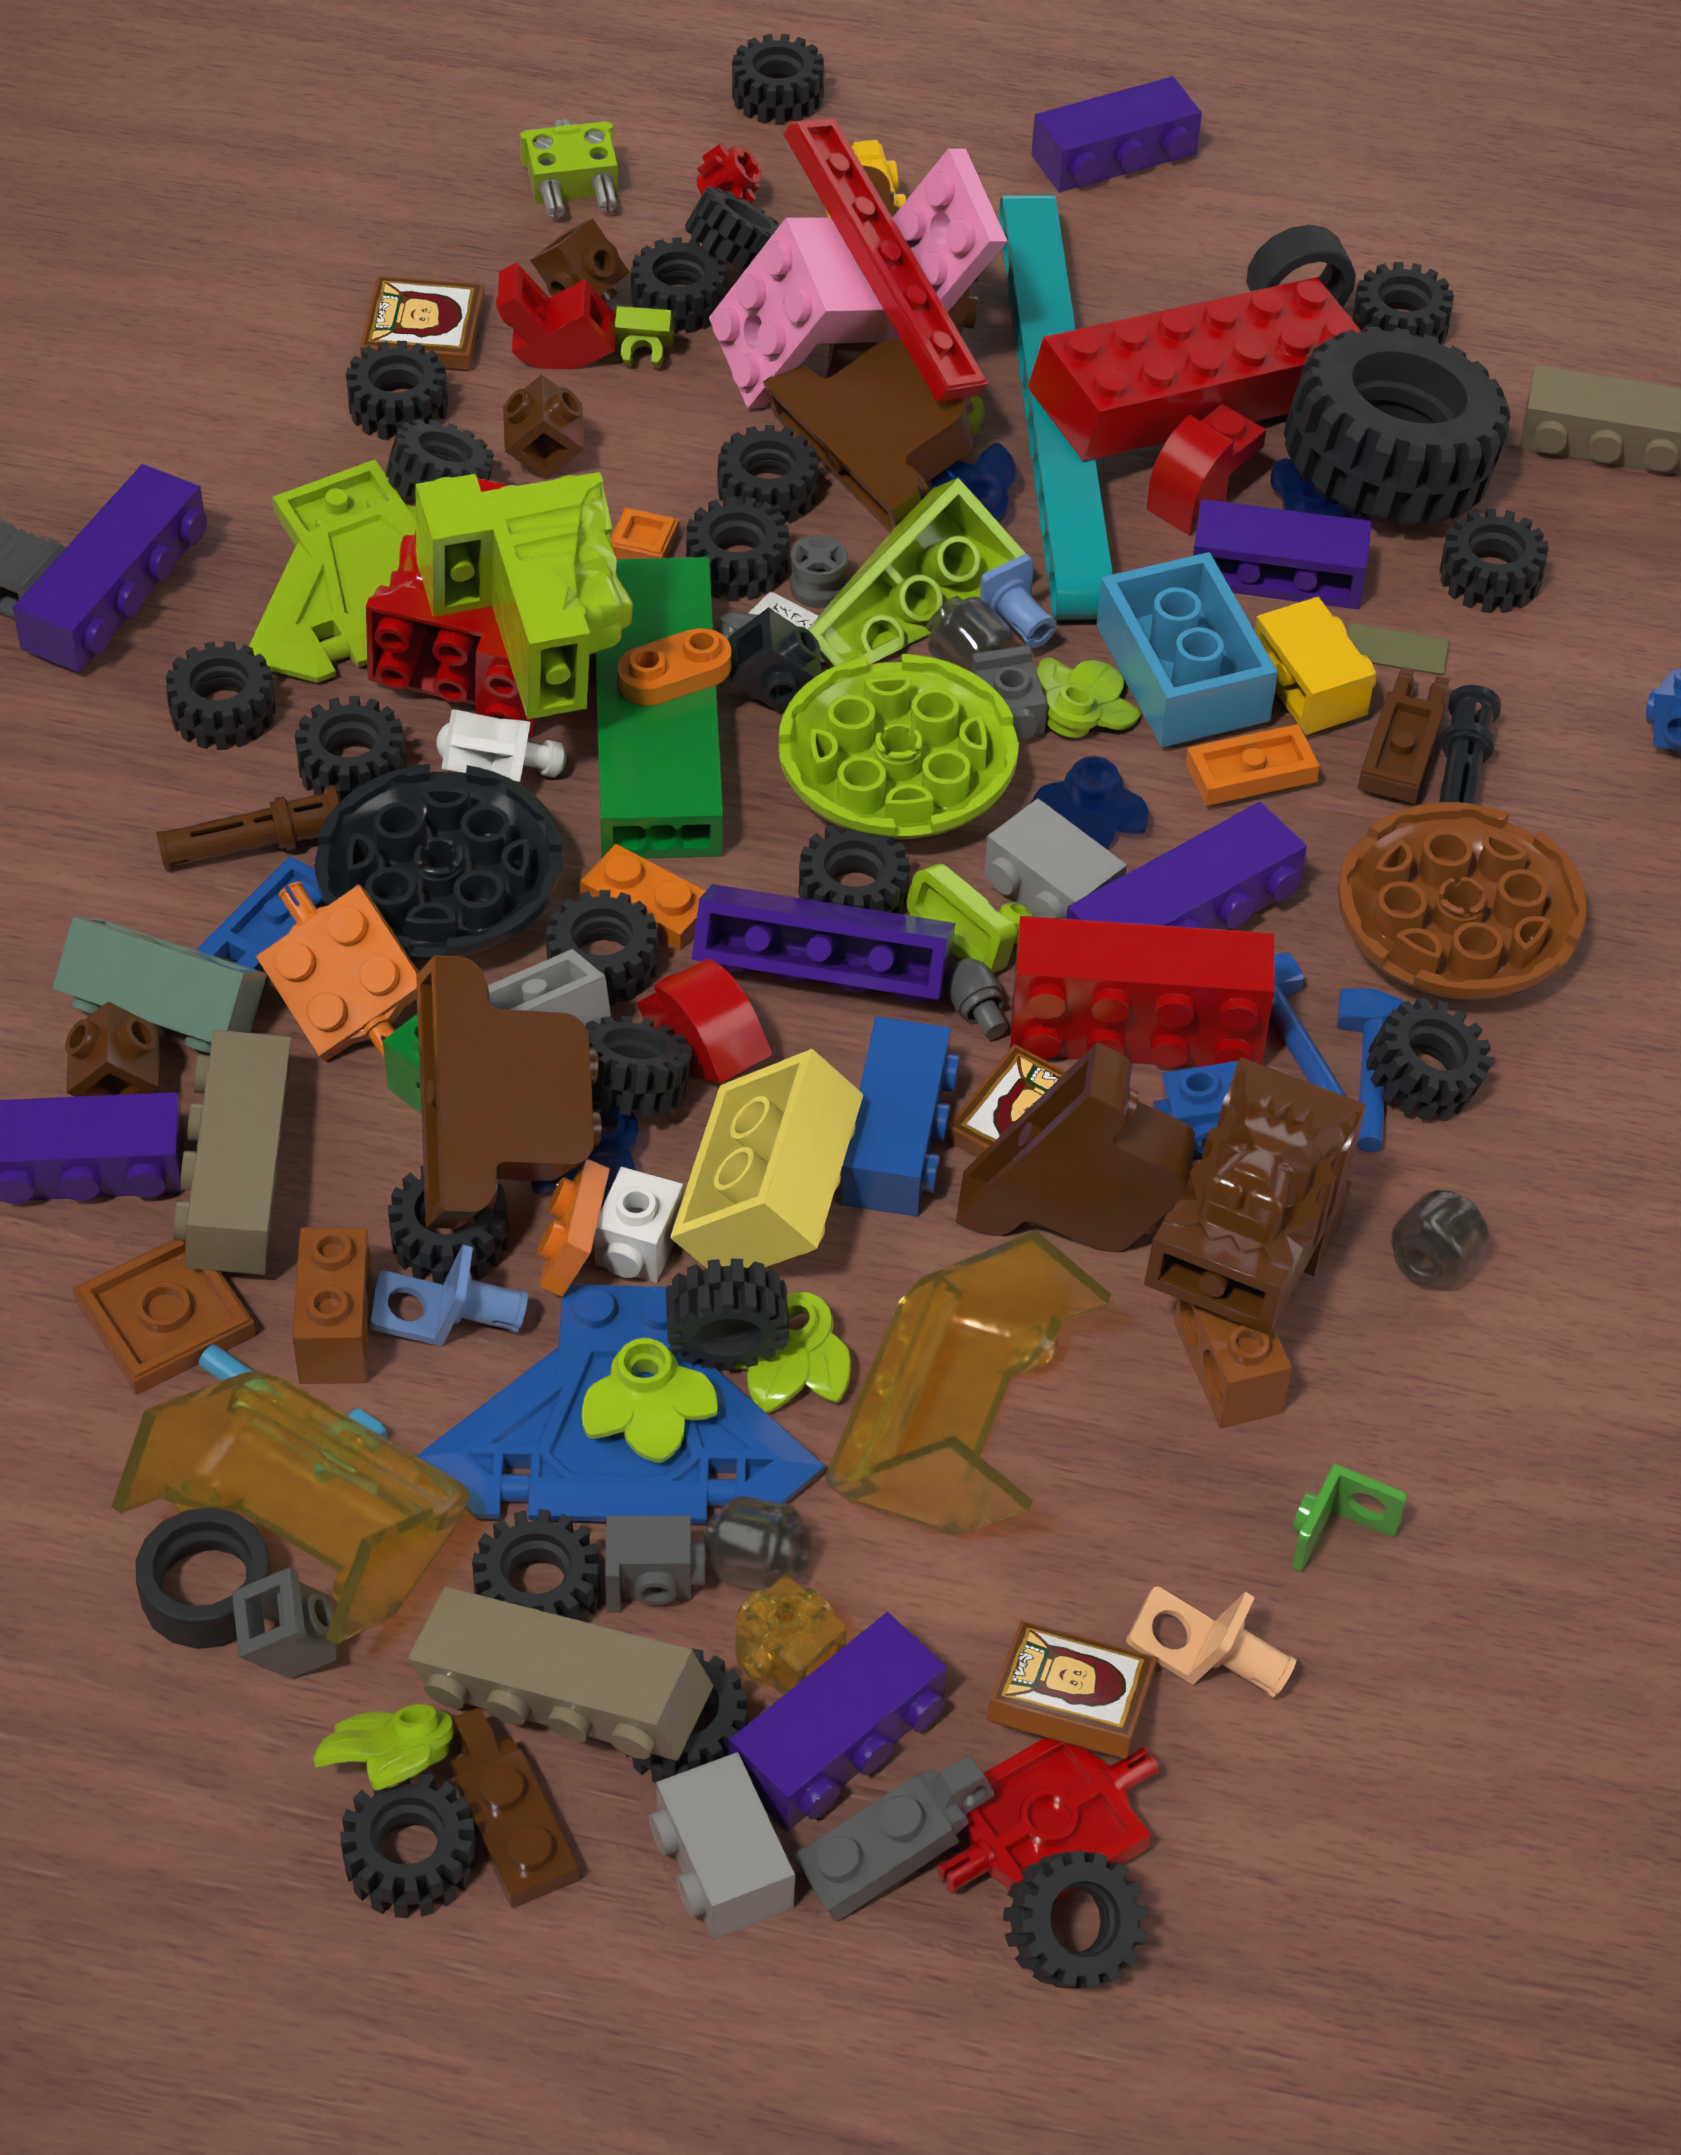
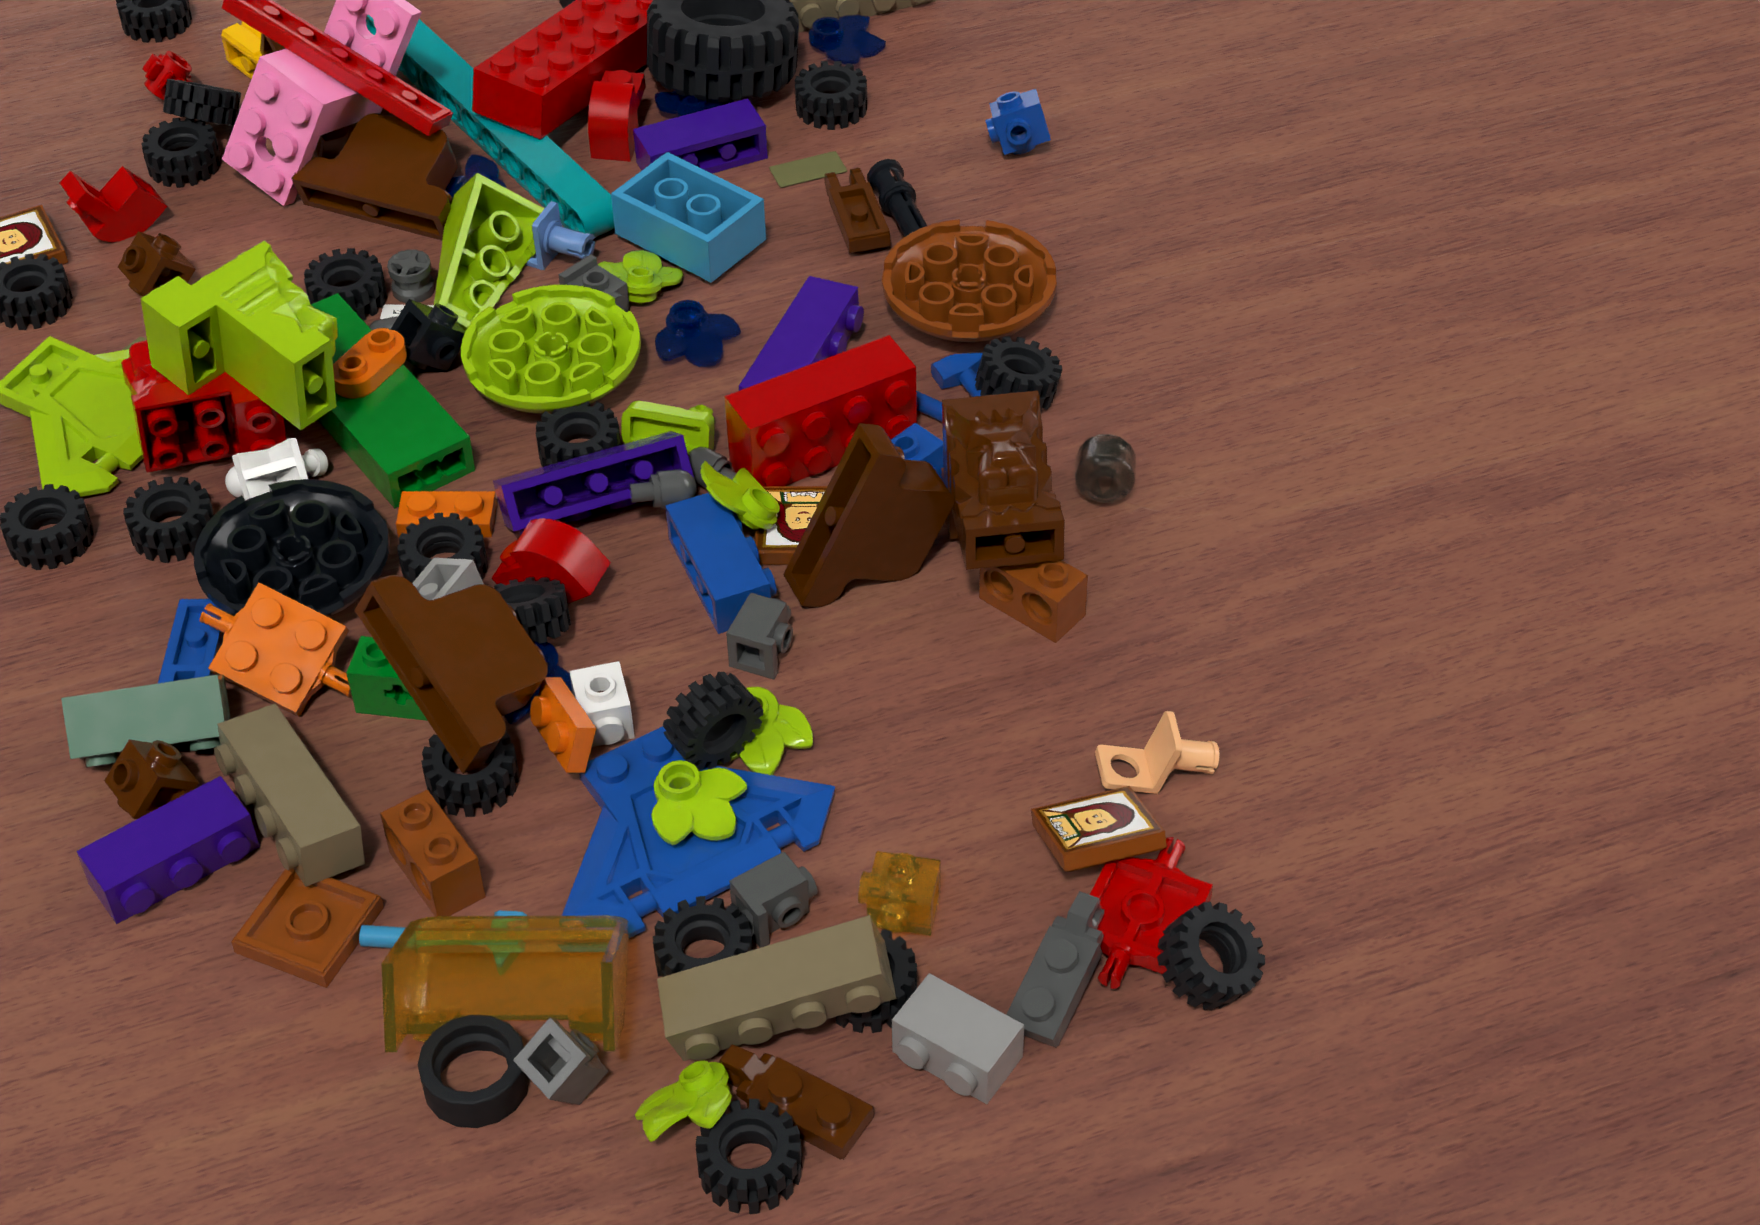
camera: 30 degrees left, 5 degrees down
(280, 824) = (154, 585): reddish brown pin -> none
(434, 452) = (100, 320): black tyre -> none
(446, 1303) = (512, 811): medium blue bracket -> none
(571, 164) = (48, 111): lime piece -> none
(580, 256) = (104, 156): reddish brown brick -> none
(644, 329) = (179, 185): lime tile -> none
(758, 1543) = (834, 849): clear smoke head -> none
(768, 1163) = (667, 620): light yellow brick -> none
(775, 454) = (330, 228): black tyre -> none
(840, 1721) = (973, 919): dark purple brick -> none
(874, 1233) = (759, 635): none -> dark grey brick
(890, 994) = (664, 488): none -> dark grey cylinder
(941, 1381) = (865, 695): clear yellow windscreen -> none
(966, 629) = (540, 265): clear smoke head -> none
(970, 1050) = (742, 495): none -> lime plate
(1047, 861) = (699, 373): light grey brick -> none
(1252, 764) = (777, 266): orange plate -> none
(1318, 666) = (789, 193): yellow brick -> none
(1338, 1498) = (1161, 646): bright green bracket -> none
(1575, 488) = (845, 38): none -> clear blue plate

